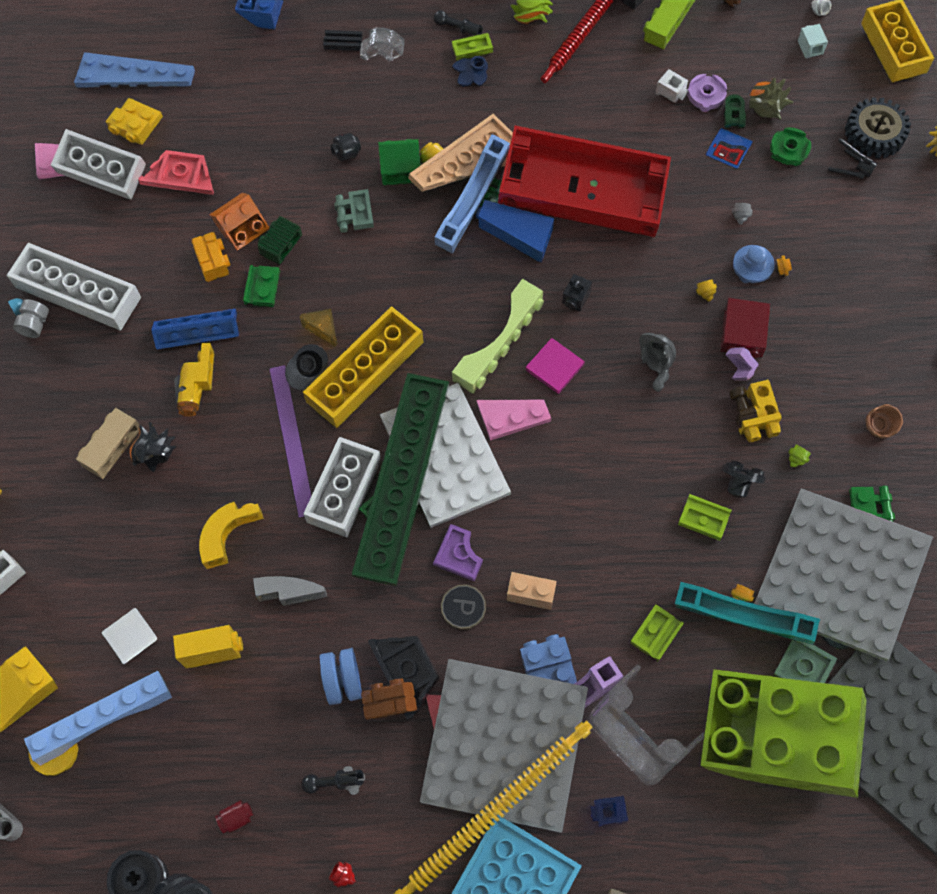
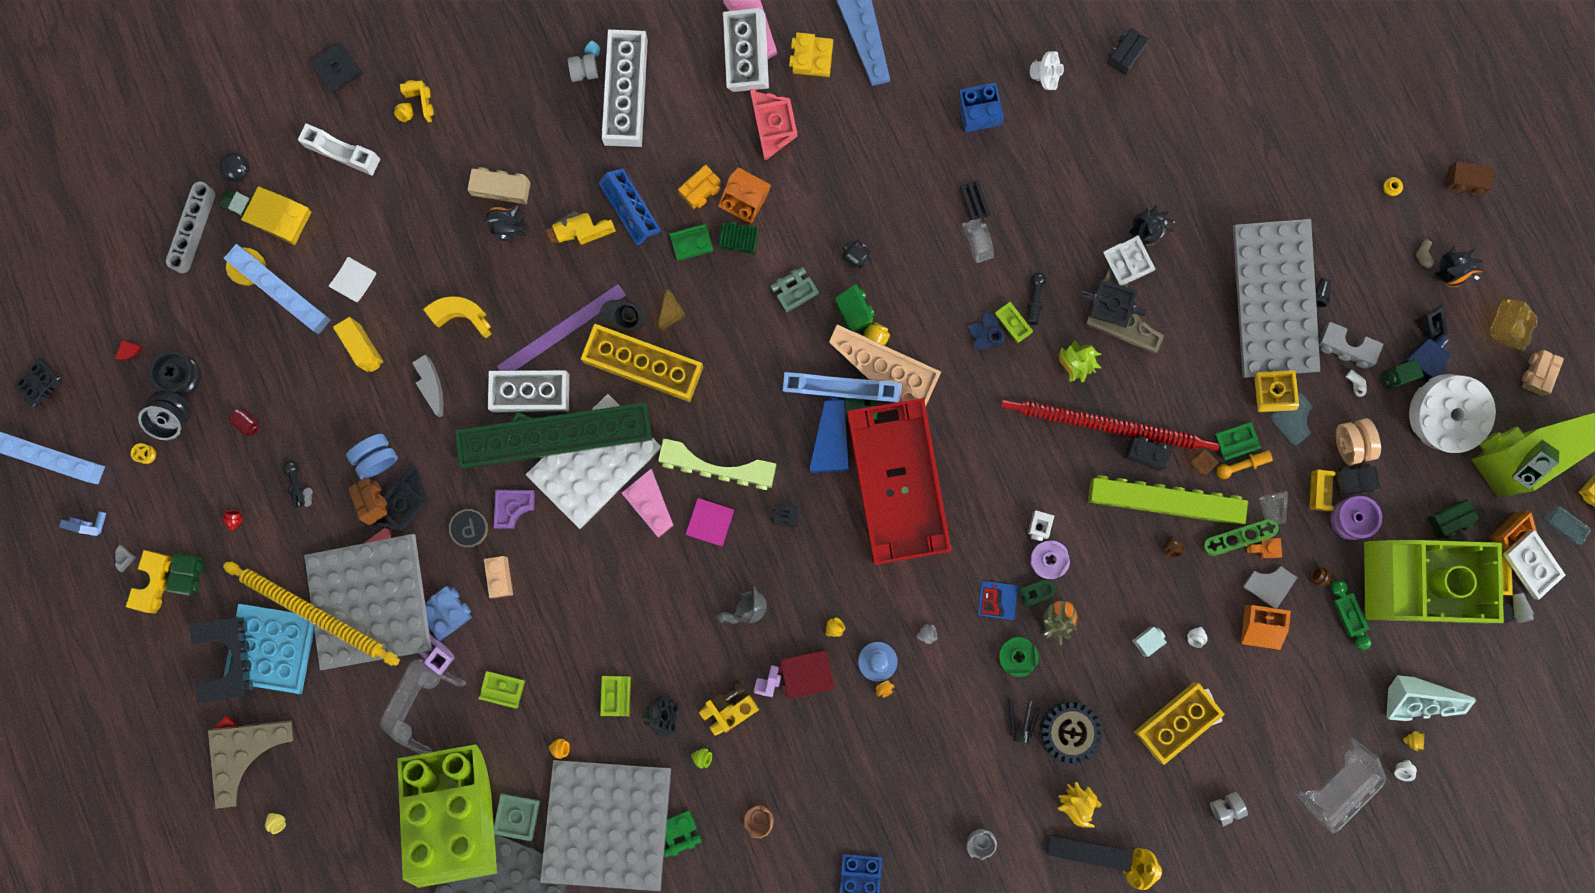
camera: 65 degrees right, 15 degrees up
(616, 805) = (339, 699): clear blue brick -> none
(758, 617) = (539, 788): teal arch -> none

